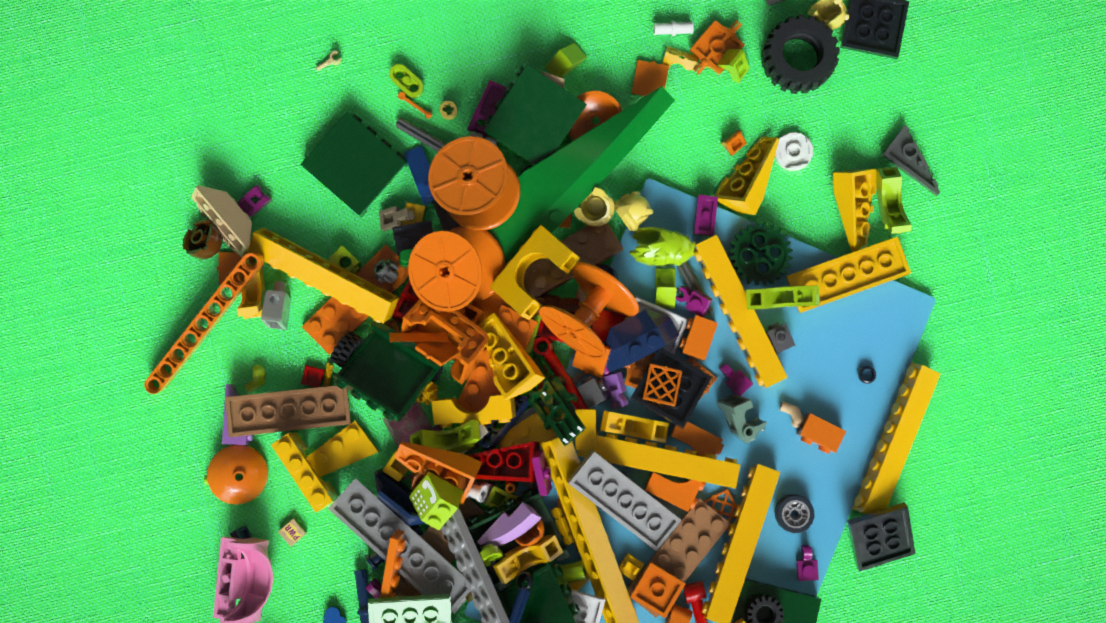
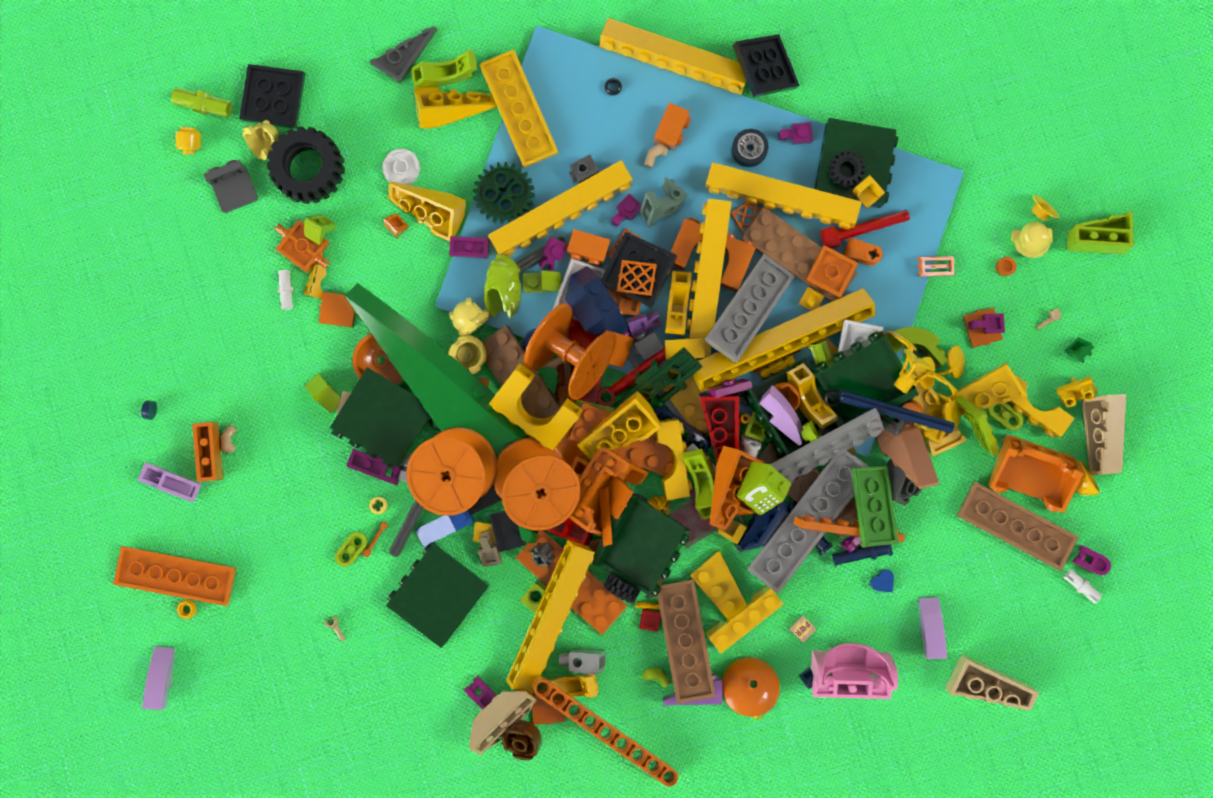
camera: 90 degrees left, 0 degrees up
(782, 297) = (544, 168): lime arch -> none

